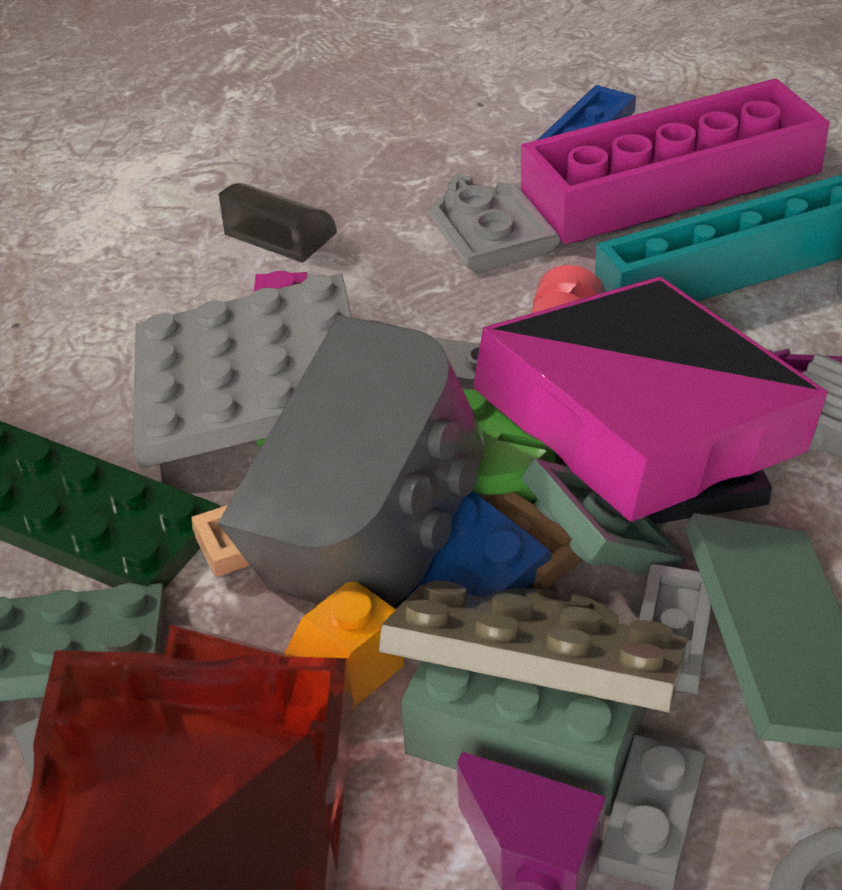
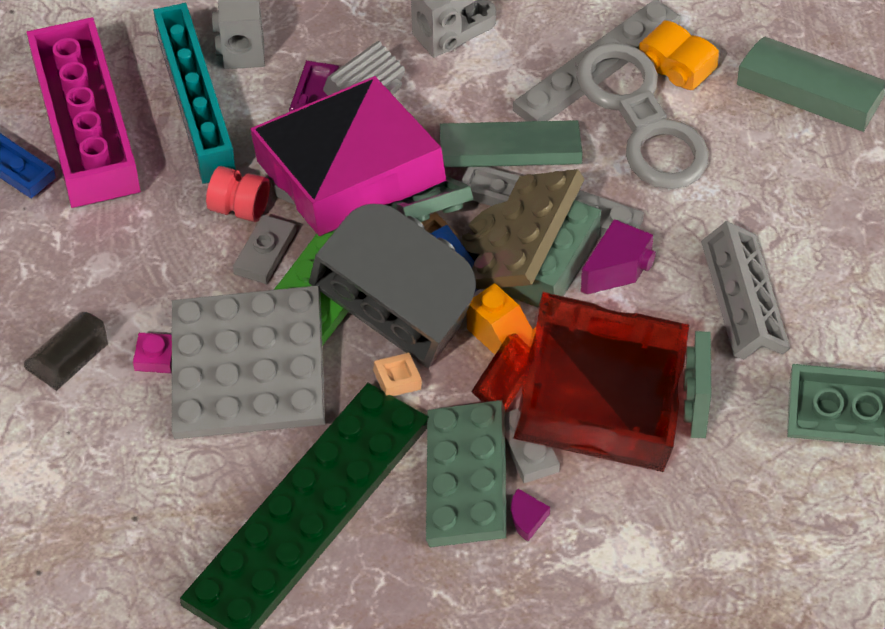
camera: 85 degrees left, 10 degrees up
(491, 224) = (99, 229): light grey tile -> none

